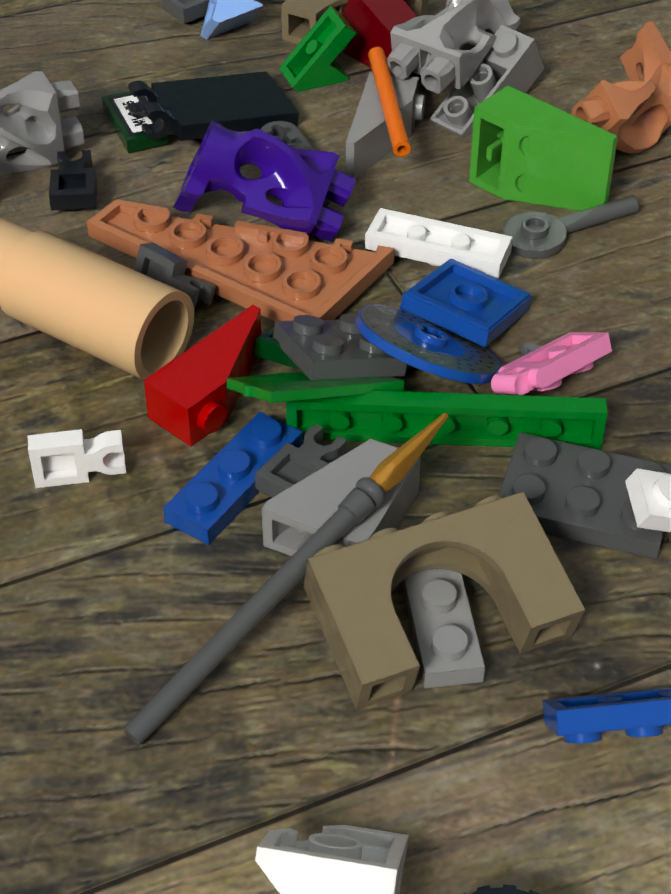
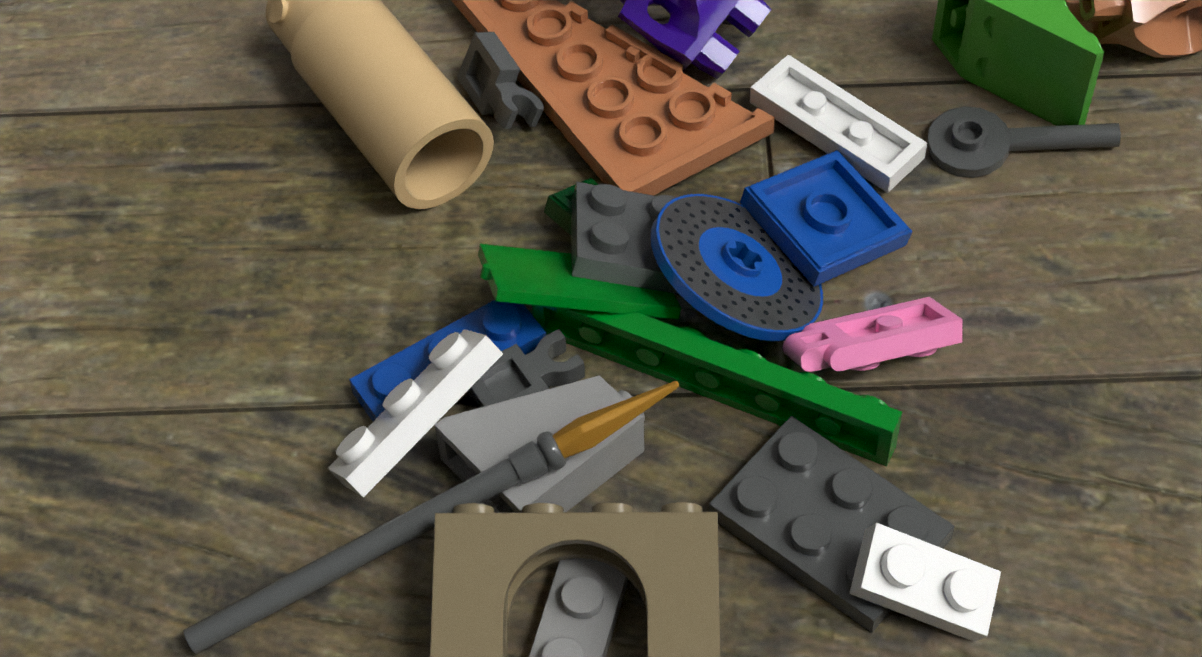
camera: 25 degrees right, 10 degrees up
(69, 458) = (279, 285): white plate -> none
(191, 391) = (444, 236): red slope -> none
(235, 508) = (413, 410): none -> white plate

